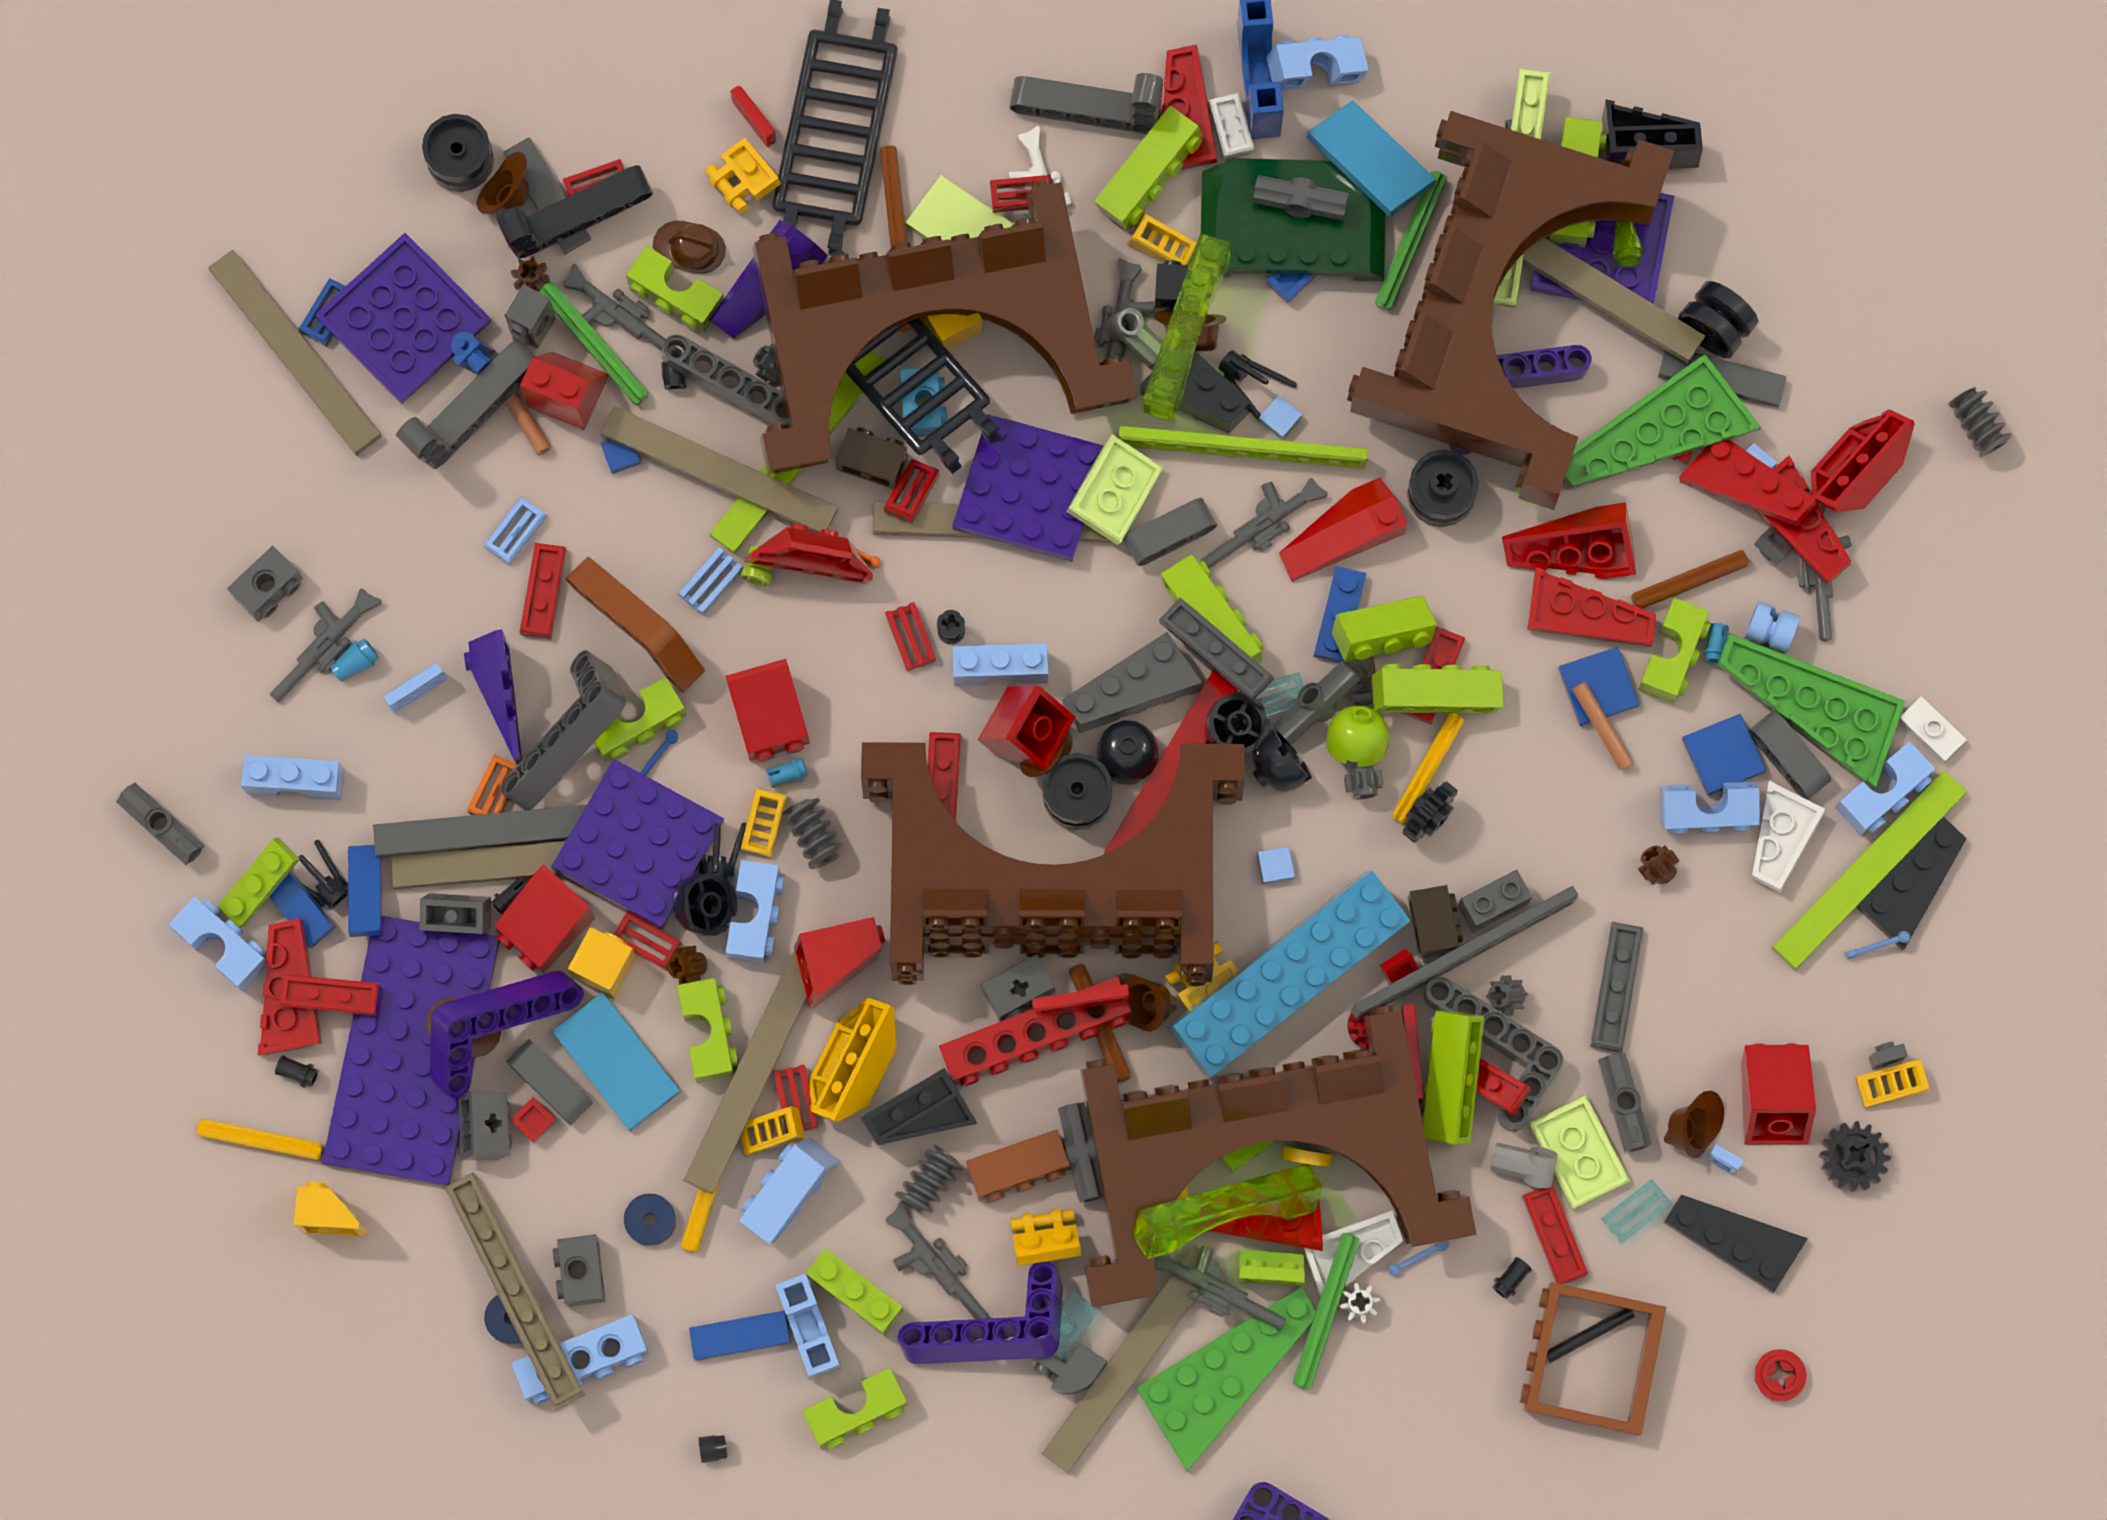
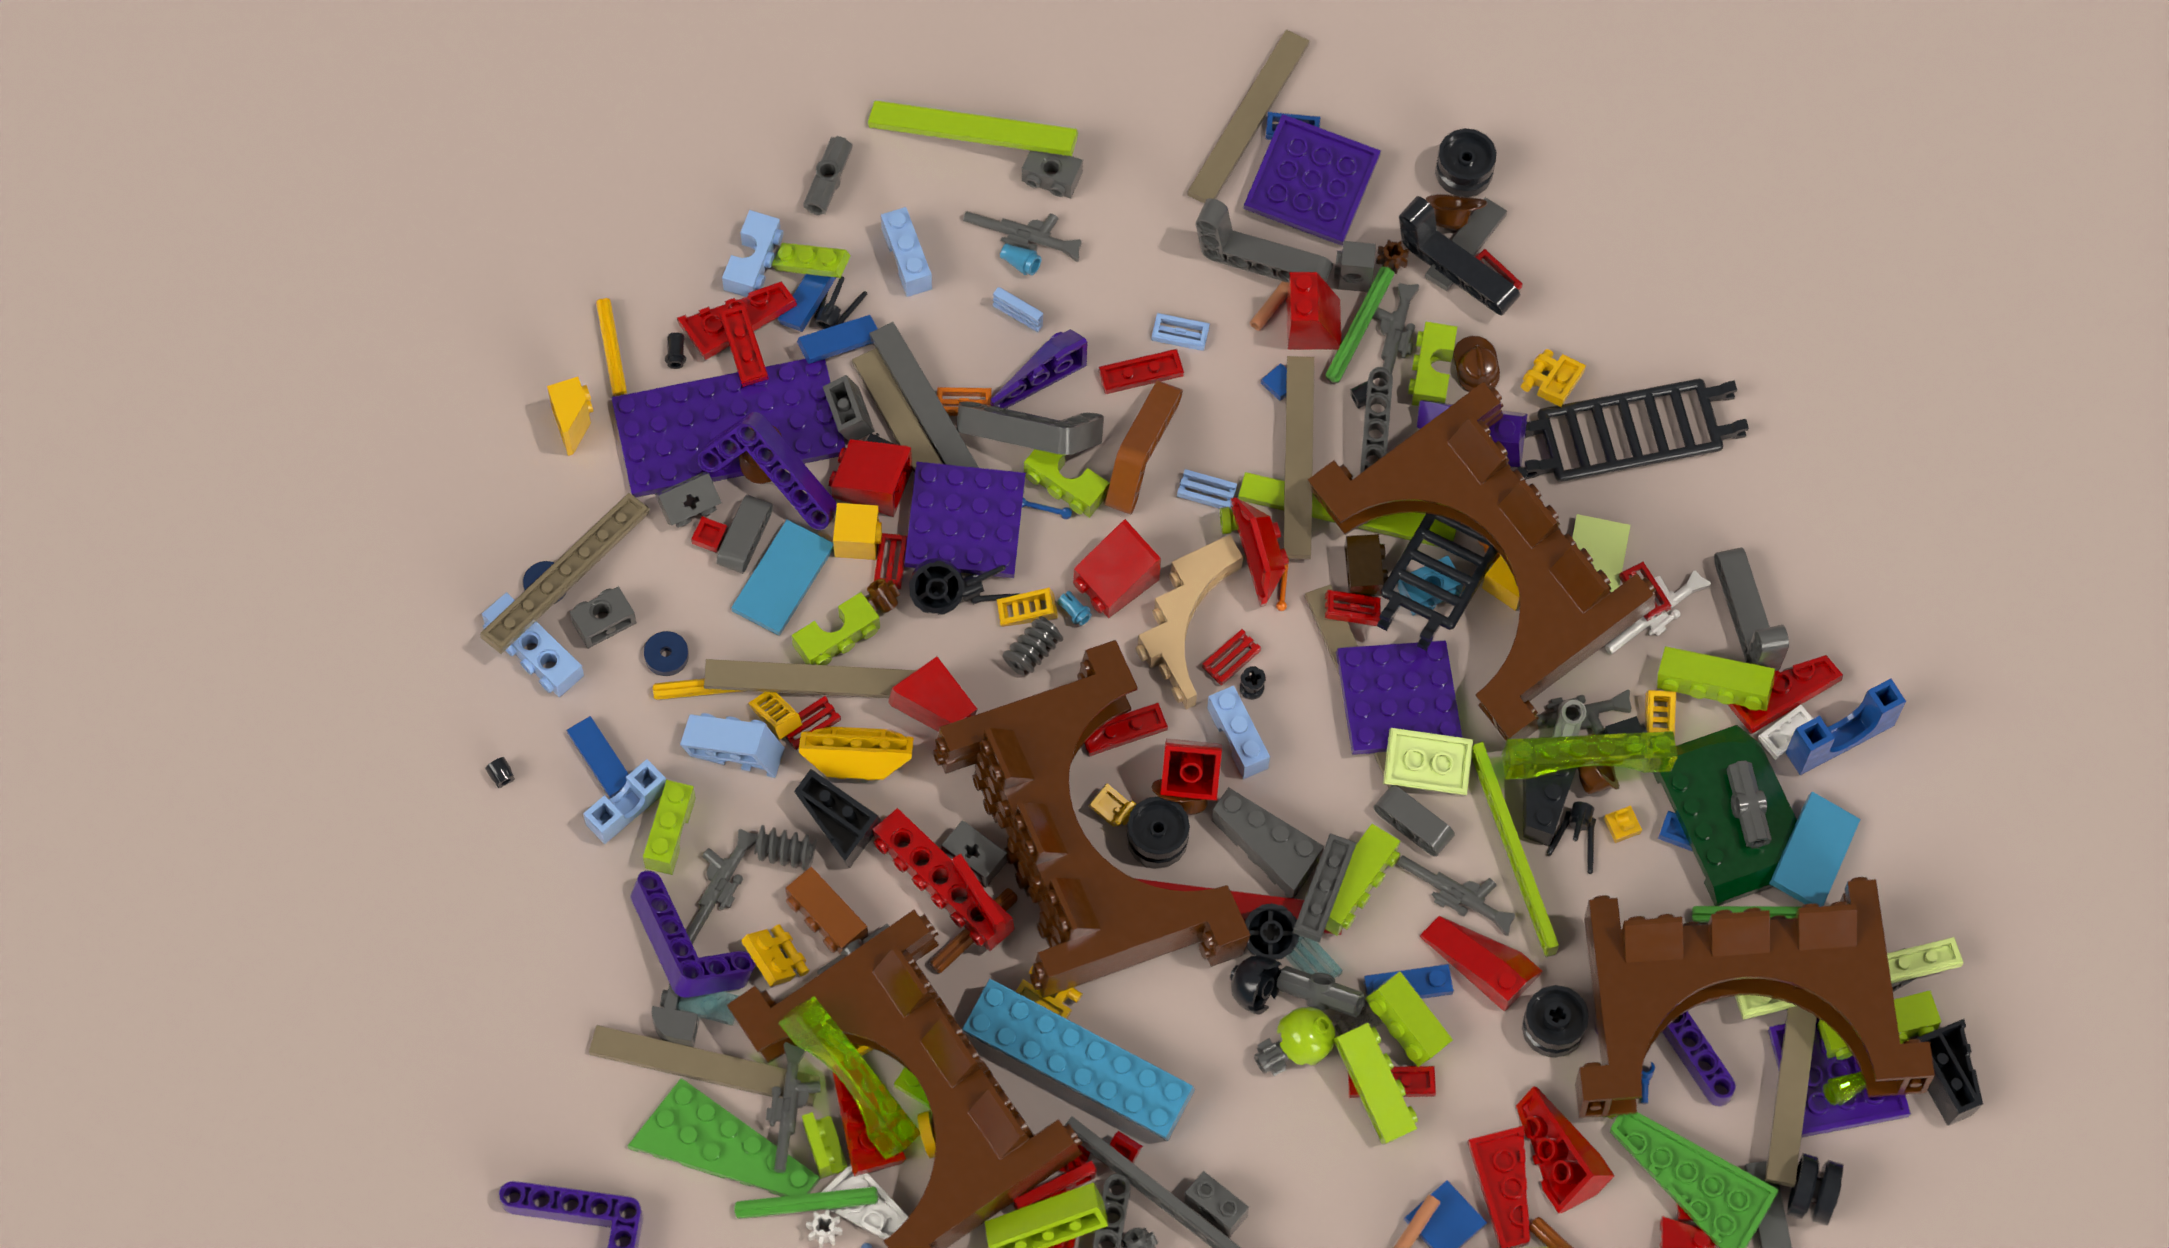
camera: 65 degrees right, 10 degrees down
(177, 646) = (973, 128): none -> lime tile
(471, 352) = (1306, 235): blue hips -> none
(752, 939) = (927, 637): light blue arch -> none
(753, 116) = (1607, 365): red tile -> none
(832, 1425) = (591, 883): lime arch -> none
(837, 671) = (1173, 611): none -> tan arch
(893, 195) = (1596, 496): dark orange axle -> none
(1027, 825) = (1112, 806): none -> yellow bracket
(1128, 751) = (1211, 861): black cylinder -> none
(1149, 1002) = (1006, 957): reddish brown piece -> none
(1258, 330) = (1622, 824): none -> yellow tile
(1276, 865) = (1169, 1017): light blue tile -> none
(1280, 417) = (1555, 870): light blue tile -> none
(1340, 57) = (1891, 791): light blue arch -> none
(1428, 766) = (1308, 1107): yellow axle -> none
(1430, 812) = (1267, 1117): black gear -> none
(1434, 921) = (1176, 1160): dark brown brick -> none

